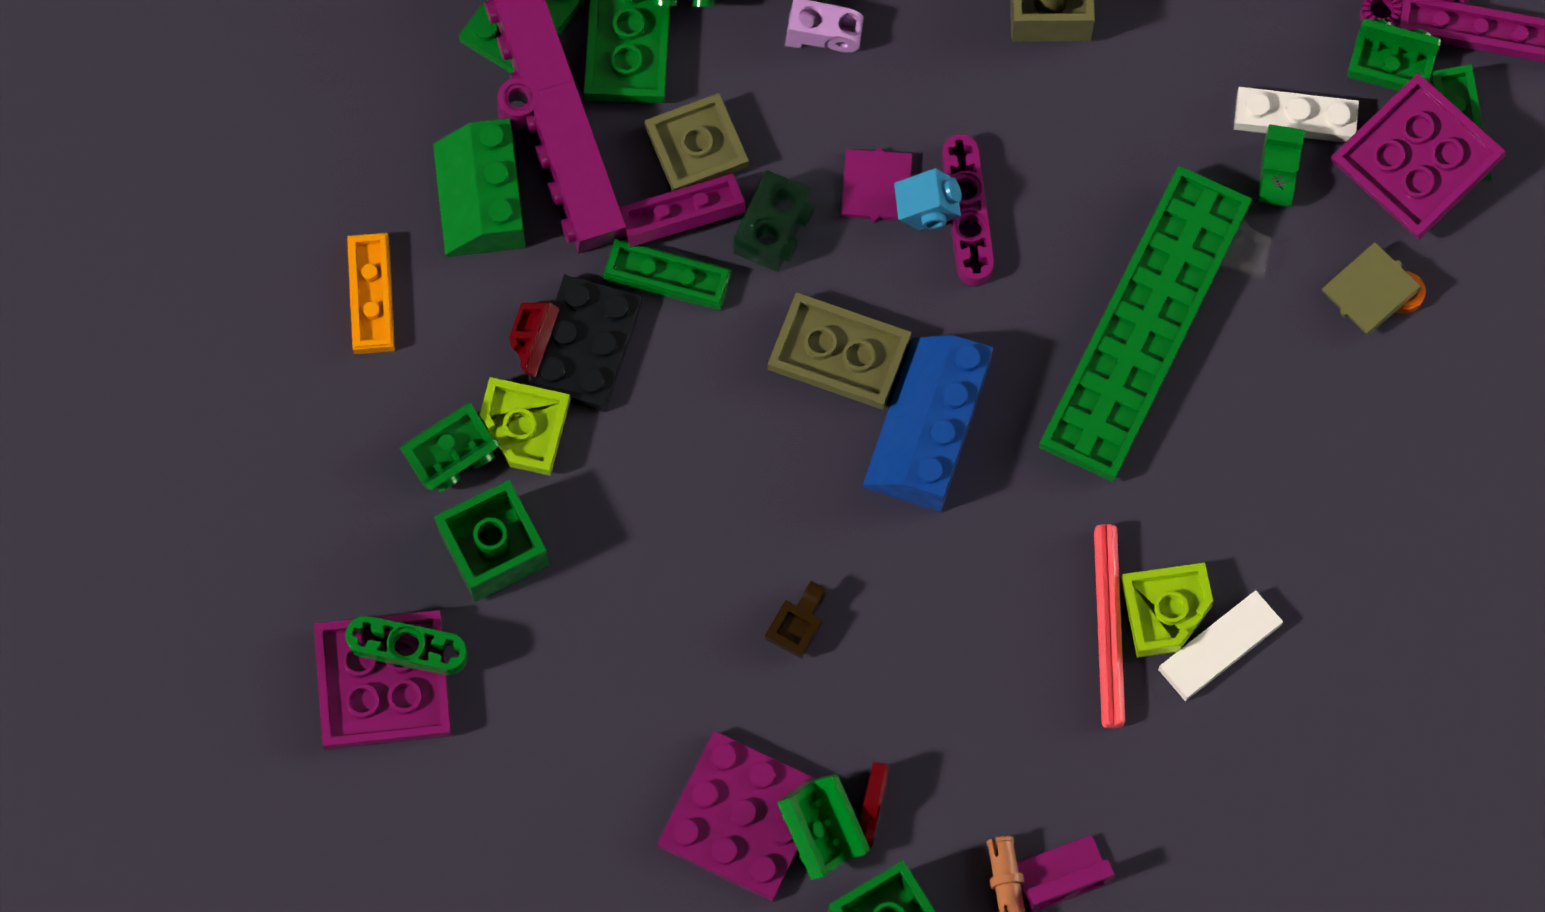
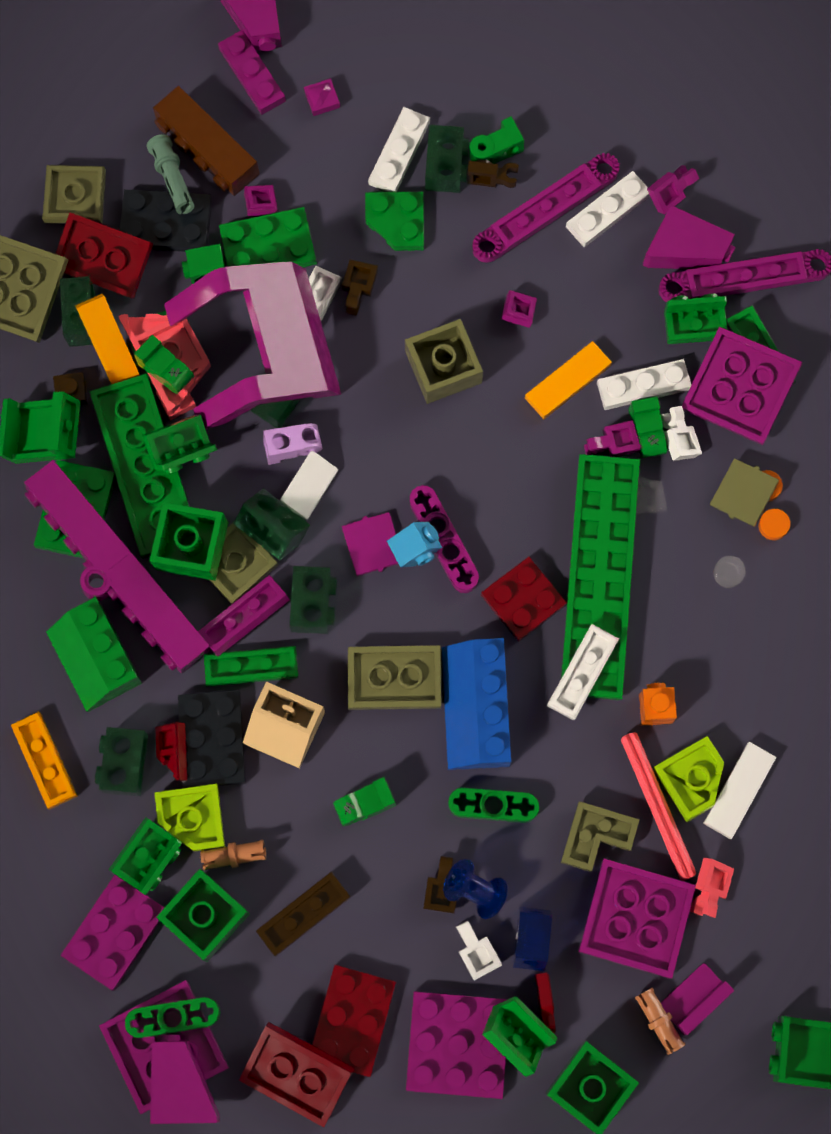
camera: 20 degrees left, 5 degrees up
(374, 525) = (113, 933): none -> magenta plate
(381, 725) = (178, 1085): none -> magenta slope
(475, 330) = (131, 761): none -> clear green brick
(530, 770) = (296, 1074): none -> dark red plate
(557, 487) = (233, 855): none -> nougat pin
(614, 588) = (303, 914): none -> dark brown plate
(624, 738) = (354, 1018): none -> dark red plate
(649, 92) = (189, 541): none -> green brick
(679, 354) = (283, 725): none -> tan slope
(743, 485) = (364, 803): none -> green leg
(759, 112) = (271, 524): none -> clear green brick
(811, 717) = (479, 954): none -> white plate
(824, 85) = (309, 485): none -> white slope
(838, 634) = (464, 883): none -> clear blue hose
(885, 721) = (532, 939): none -> clear blue torso
(896, 531) = (517, 800): none -> green beam
(1013, 619) = (594, 826): none -> olive plate
(1027, 748) = (637, 918): none -> magenta plate
(1039, 317) = (523, 599): none -> dark red plate
(1077, 427) = (582, 672): none -> white tile
(1142, 743) = (714, 883): none -> coral plate
(1156, 502) = (657, 704): none -> orange brick
(1201, 75) = (568, 380): none -> light orange tile
(1235, 167) = (617, 439): none -> magenta plate
(1314, 193) = (680, 438): none -> white plate
(1314, 378) = (729, 571): none -> clear tile
(1395, 342) = (774, 524): none -> orange tile

